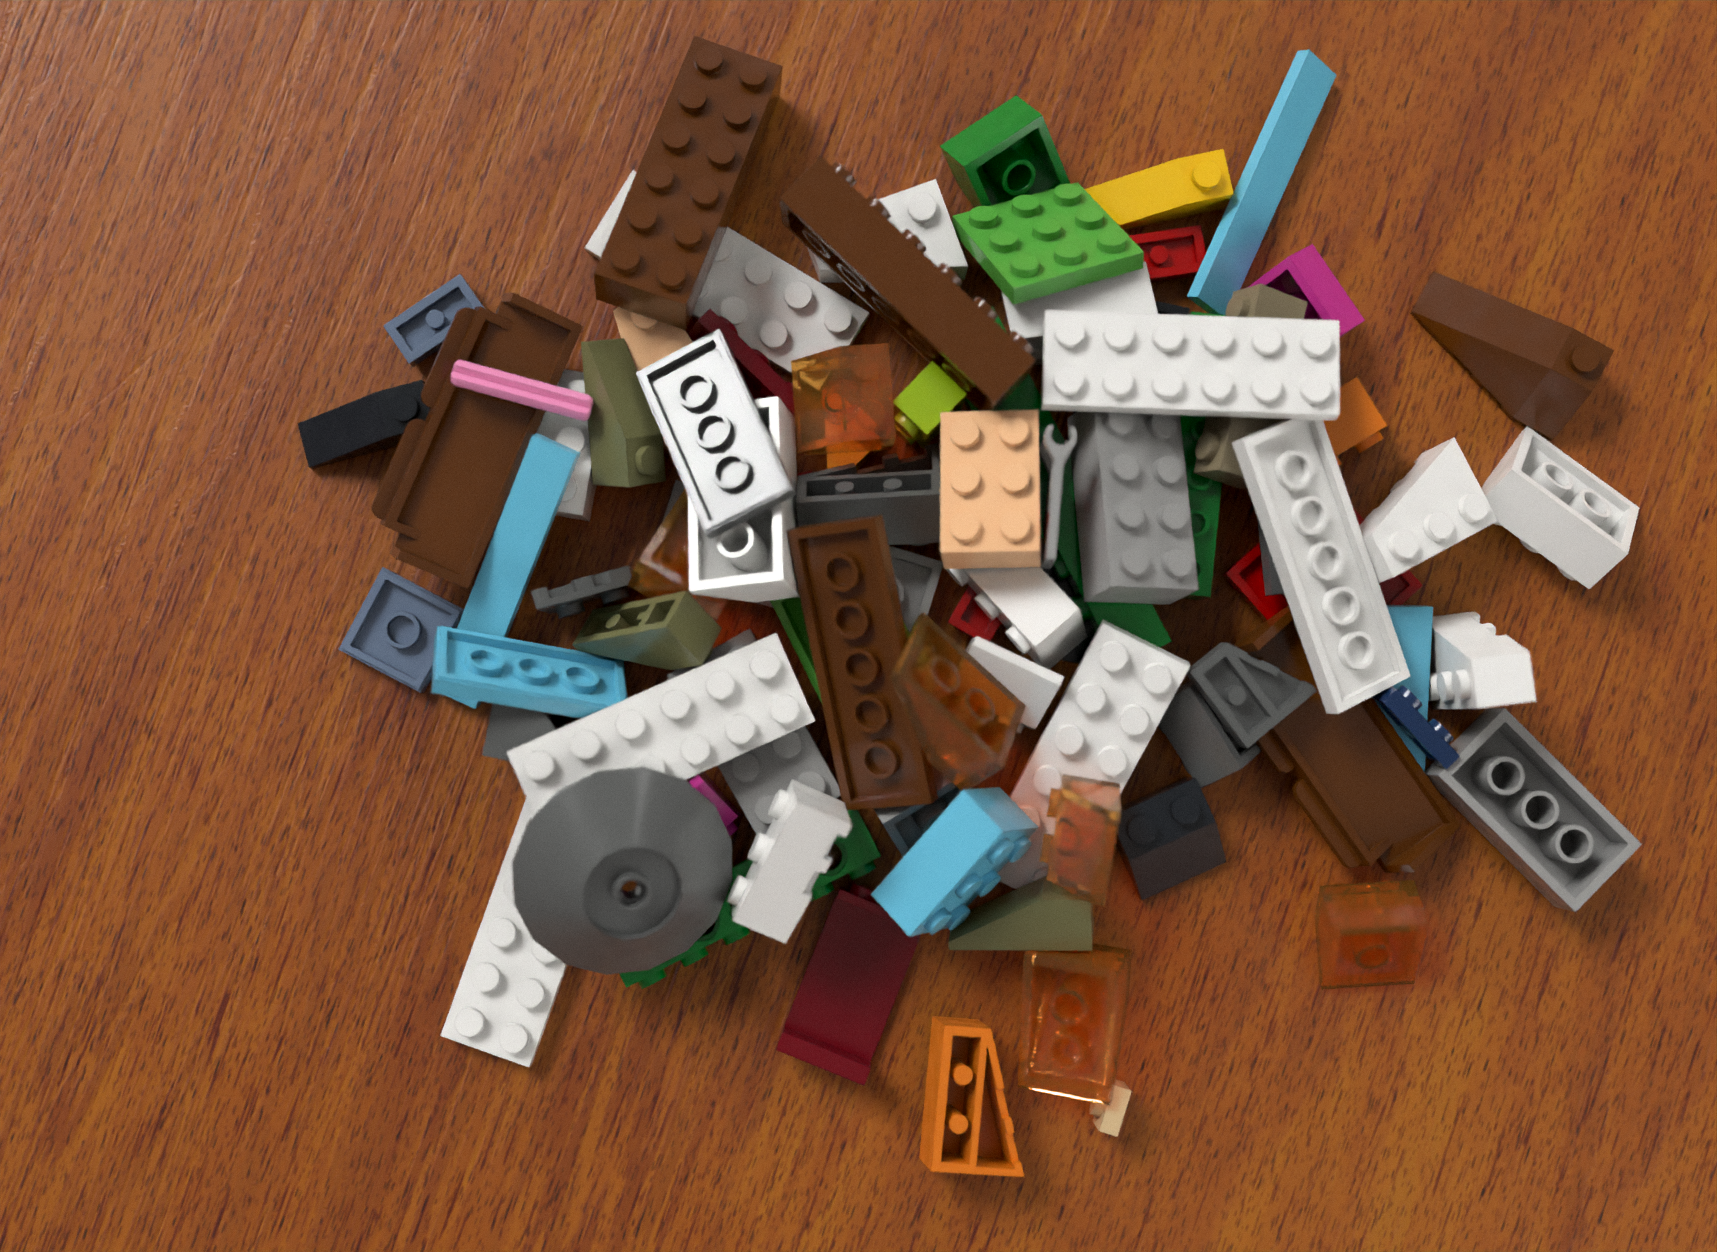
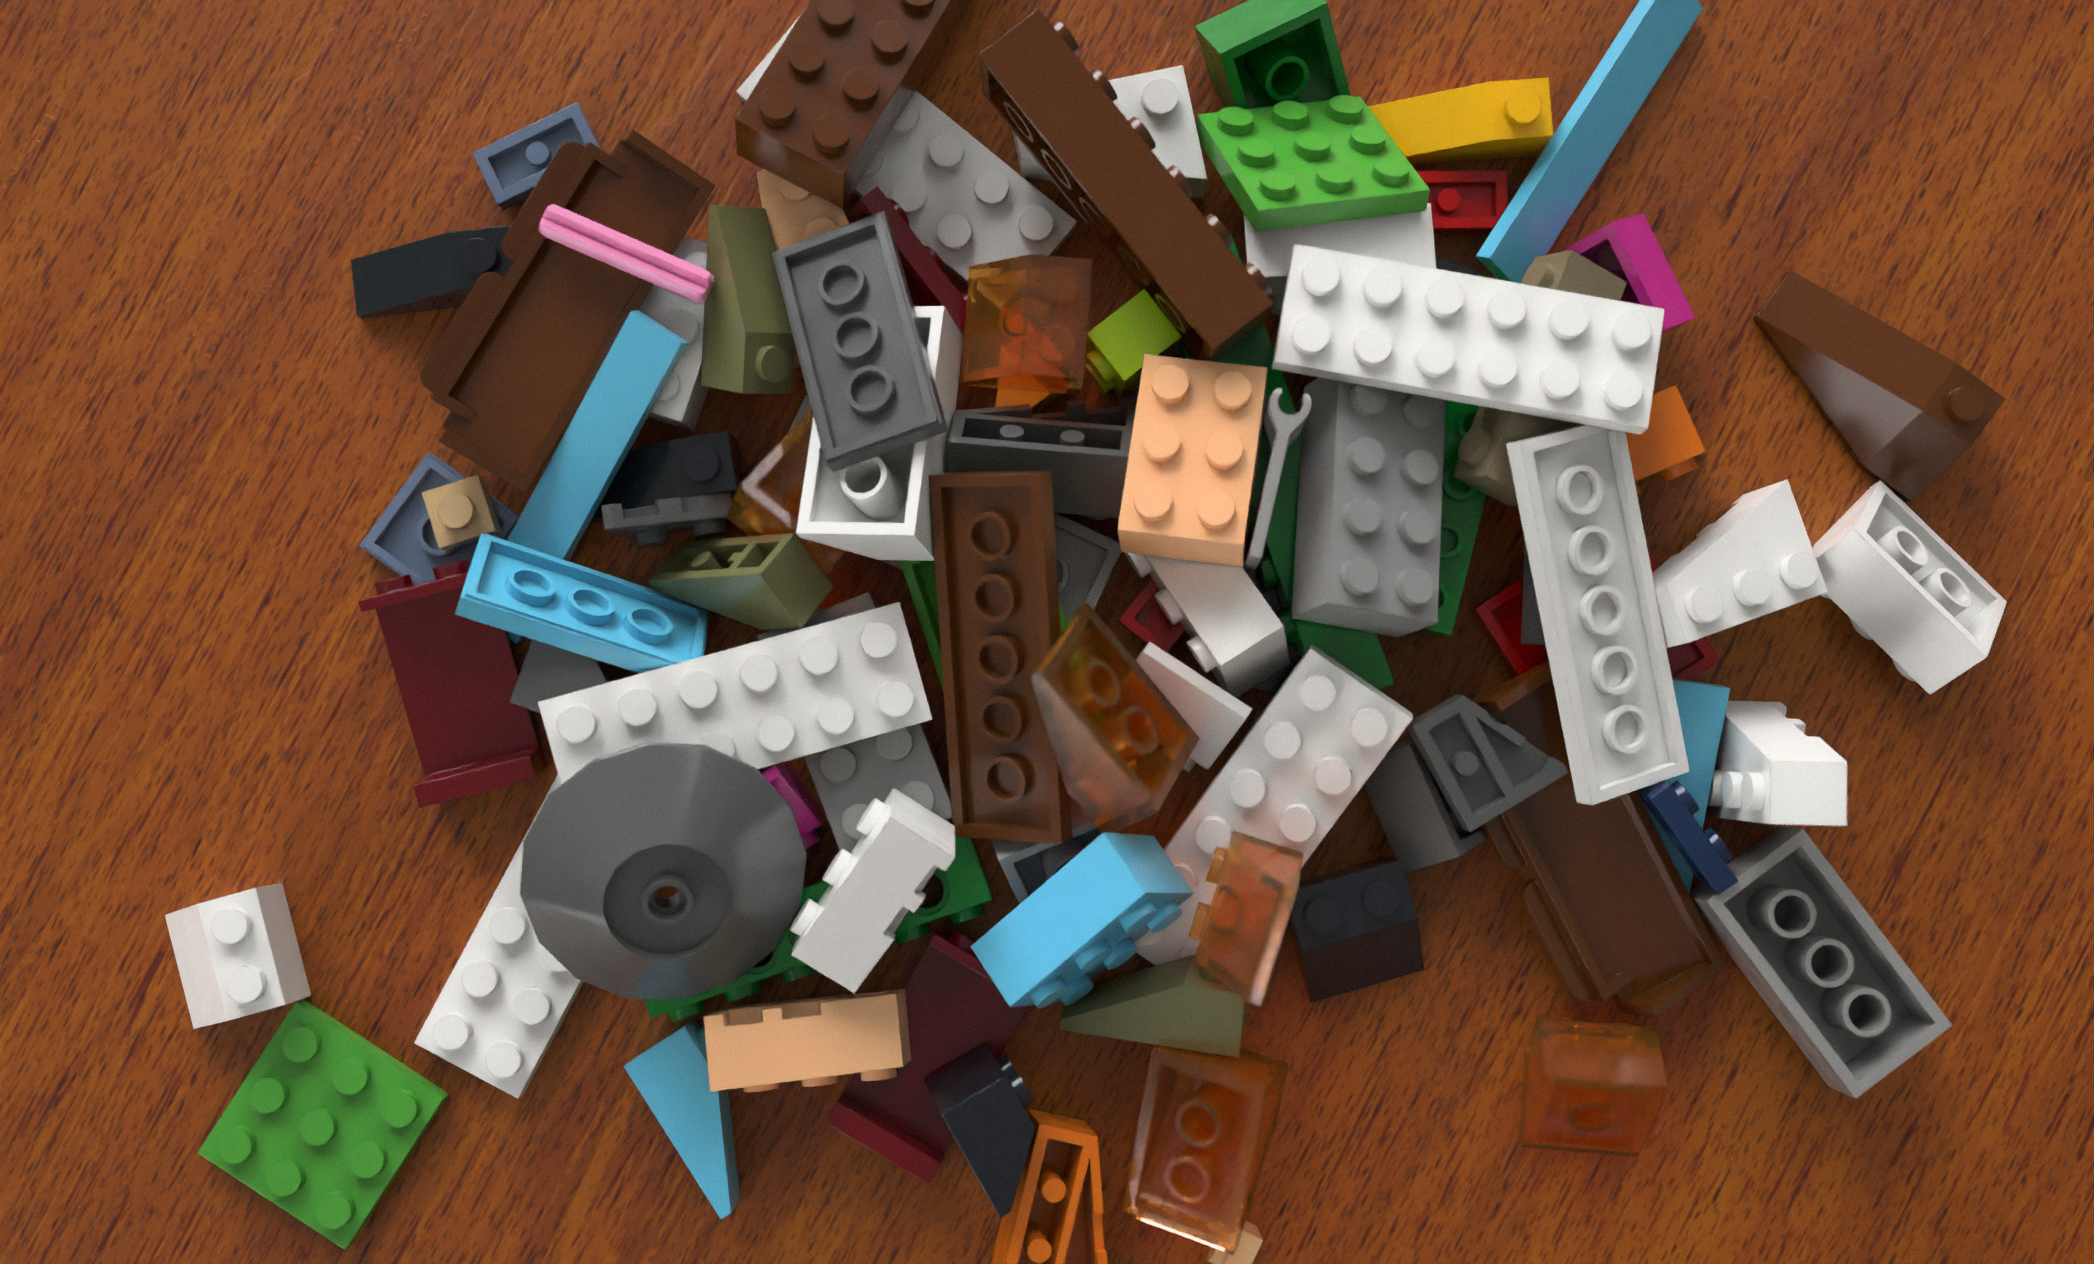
camera: 20 degrees right, 0 degrees up
(289, 988) = (237, 955): none -> white slope
(377, 1110) = (323, 1123): none -> bright green plate
(416, 611) = (461, 512): none -> tan plate
(432, 750) = (455, 688): none -> dark red panel
(582, 555) = (675, 470): none -> black slope
(665, 1046) = (697, 1121): none -> medium azure slope
(753, 987) = (807, 1041): none -> light nougat wedge
(903, 1027) = (986, 1114): none -> black slope

